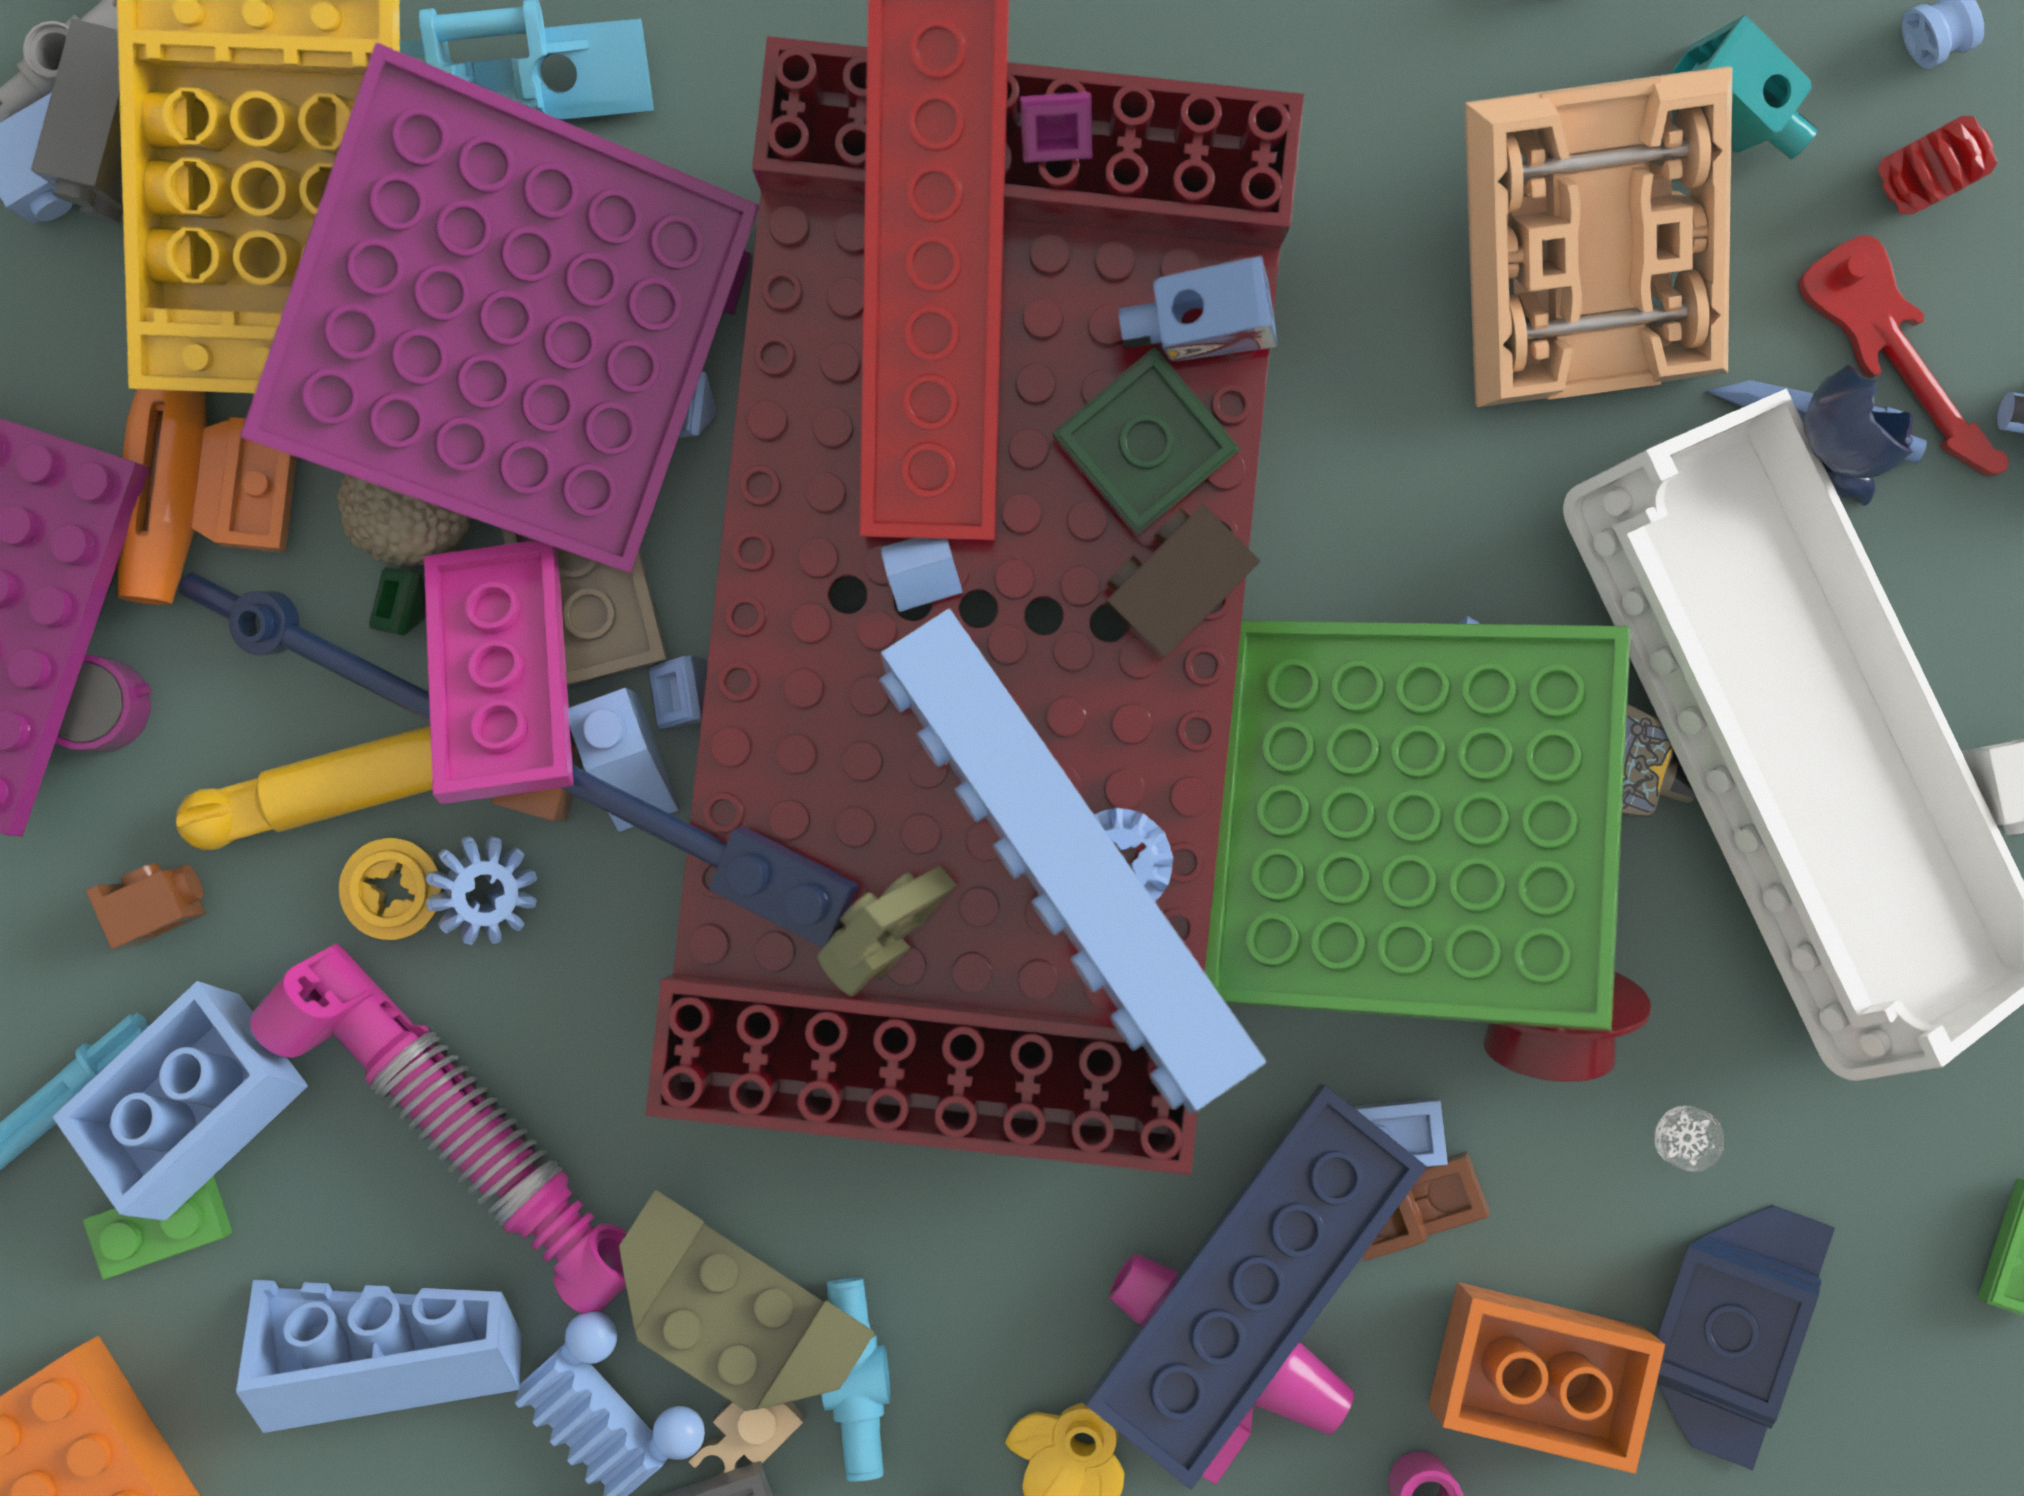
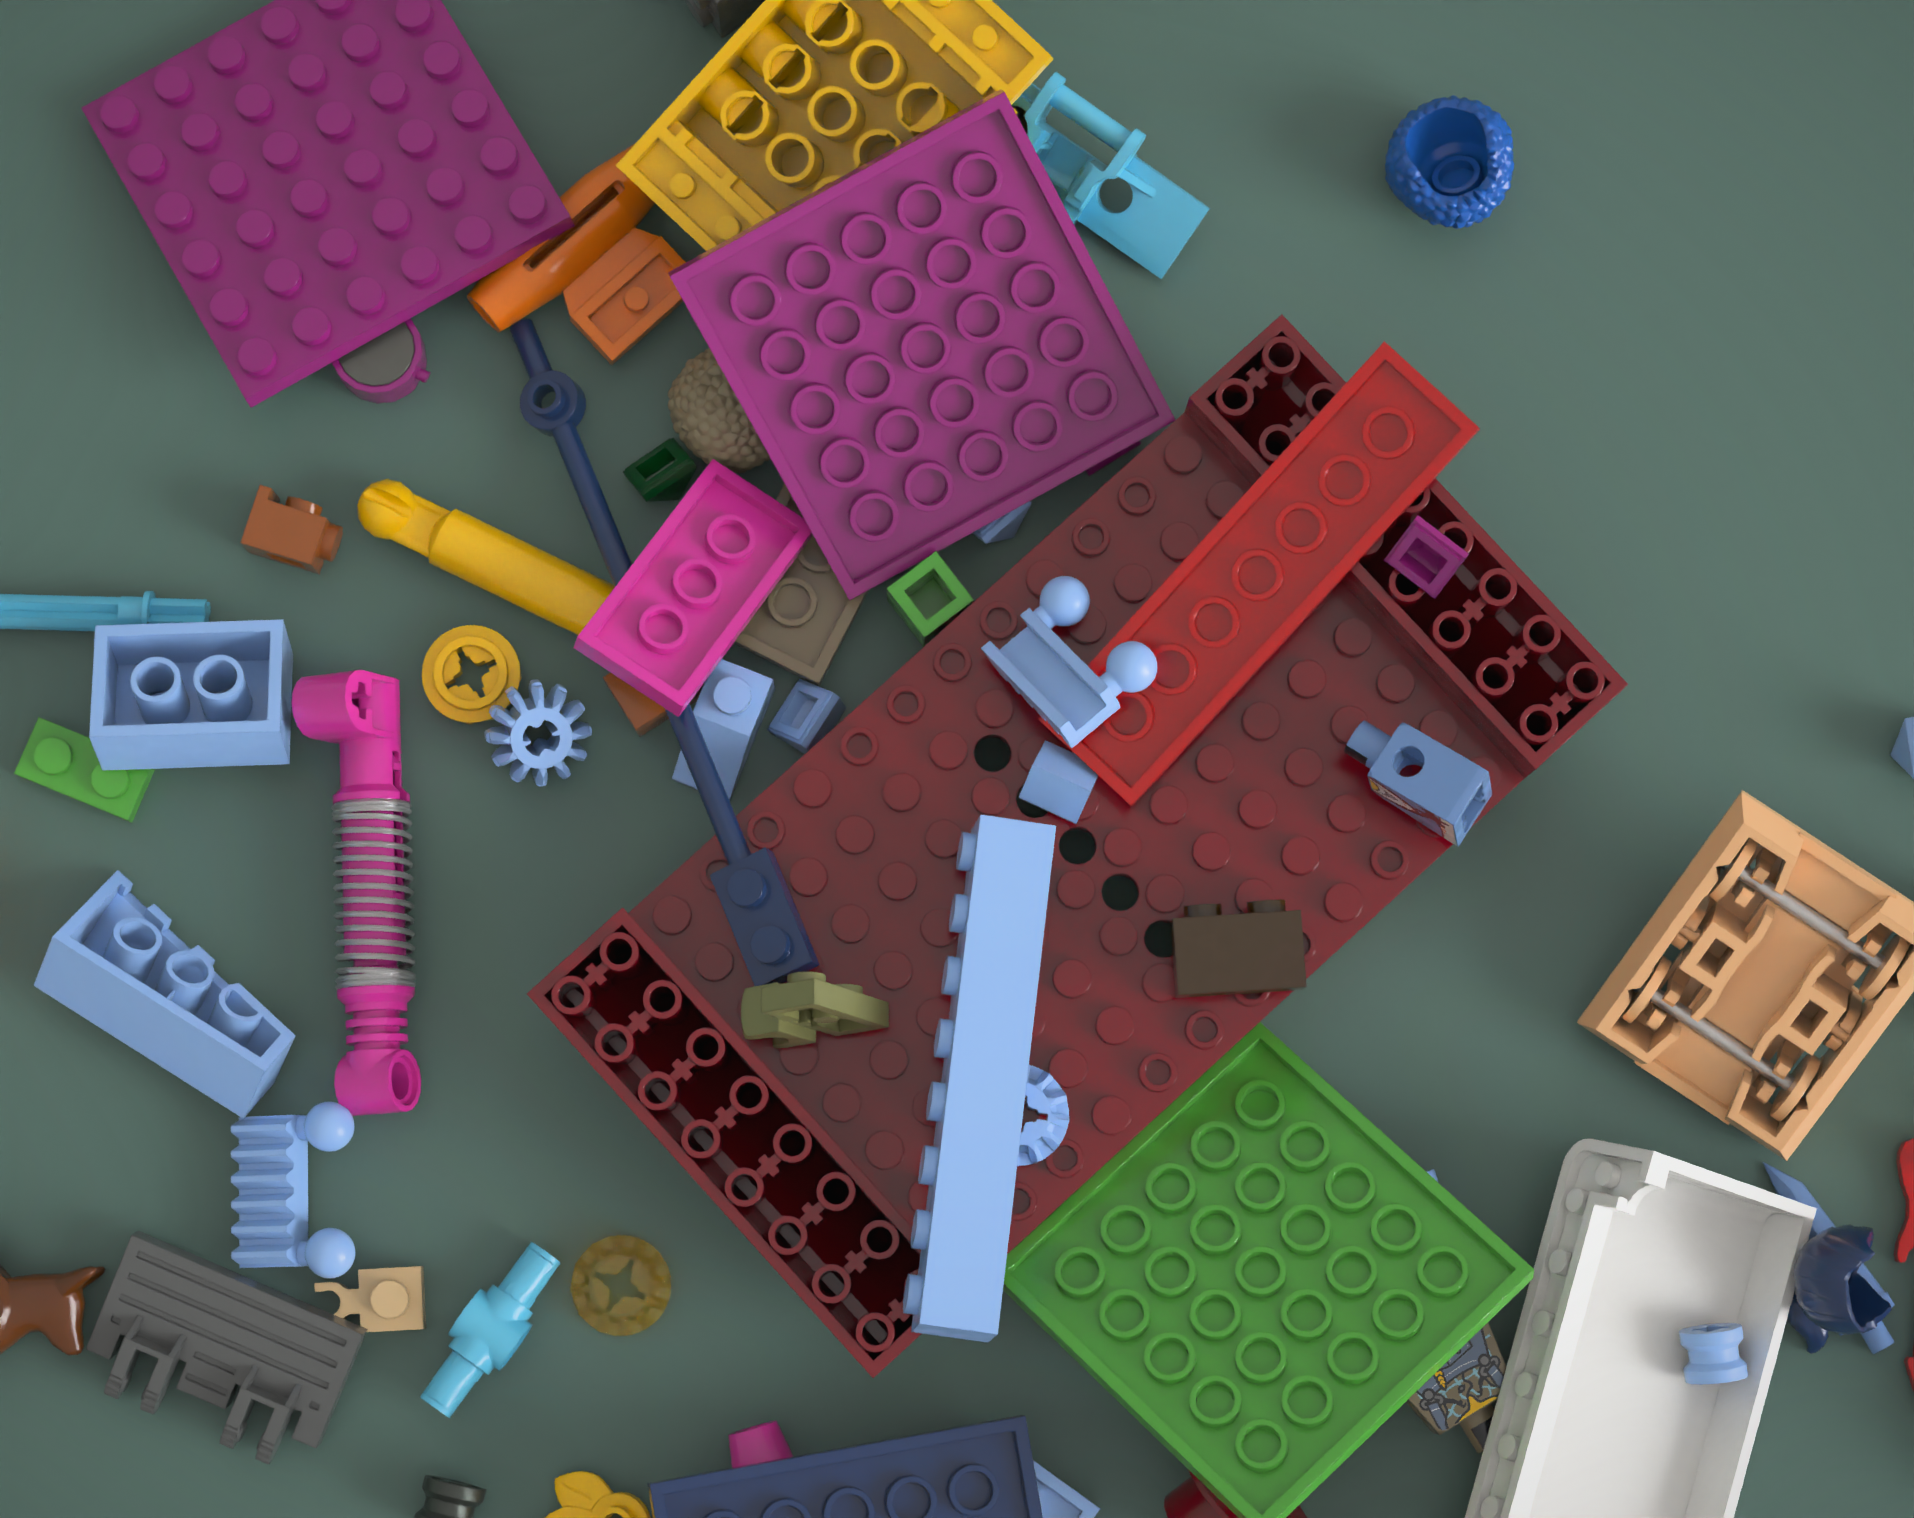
camera: 40 degrees right, 5 degrees down
(689, 516) = (928, 598): none -> bright green brick
(731, 1314) = (442, 1201): olive piece -> none
(846, 489) = (1055, 677): none -> light blue gear
(941, 1228) = (649, 1275): none -> clear yellow gear
(1145, 441) = (1301, 831): dark green tile -> none
(1804, 569) = (1713, 1353): none -> light blue wheel

